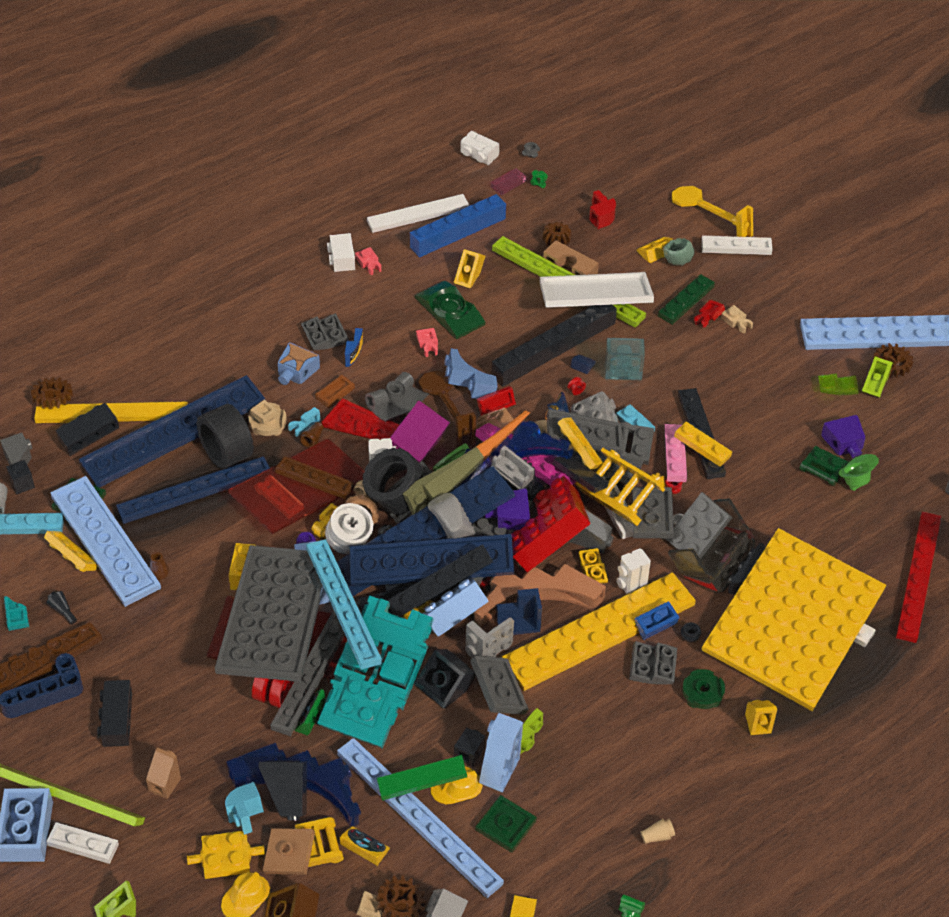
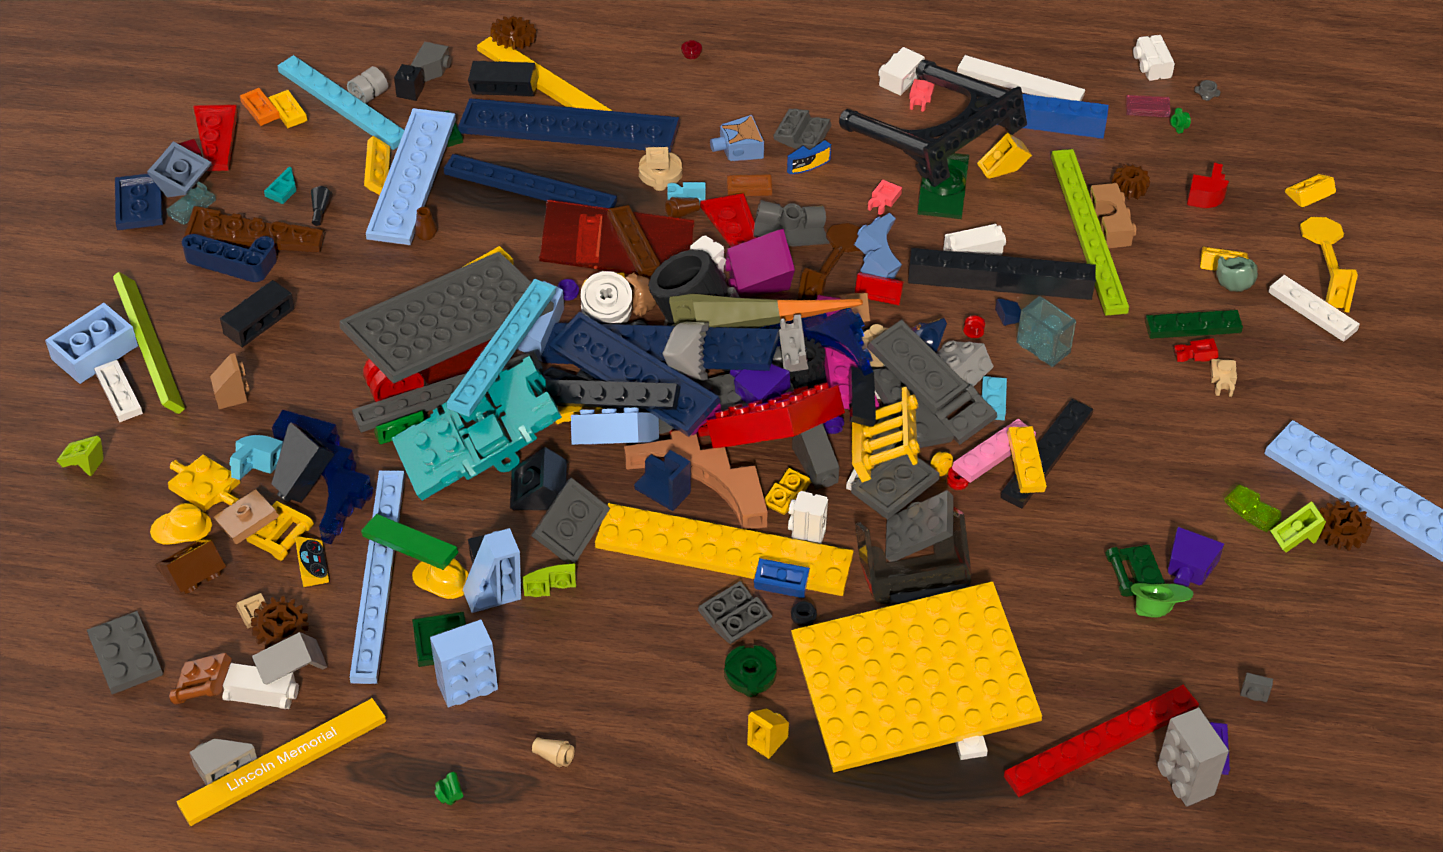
camera: 45 degrees right, 0 degrees up
(187, 325) = (691, 49): none -> dark red plate
(225, 436) = (594, 153): black tyre -> none
(436, 293) = (1001, 108): none -> black arch
(491, 643) = (609, 481): light grey bracket -> none
(517, 332) = (980, 240): none -> white brick
(558, 822) = (464, 663): none -> light blue brick
(580, 443) = (889, 368): yellow plate -> none
(596, 289) = (1096, 251): white tile -> none
(653, 175) = (1311, 190): none -> yellow slope

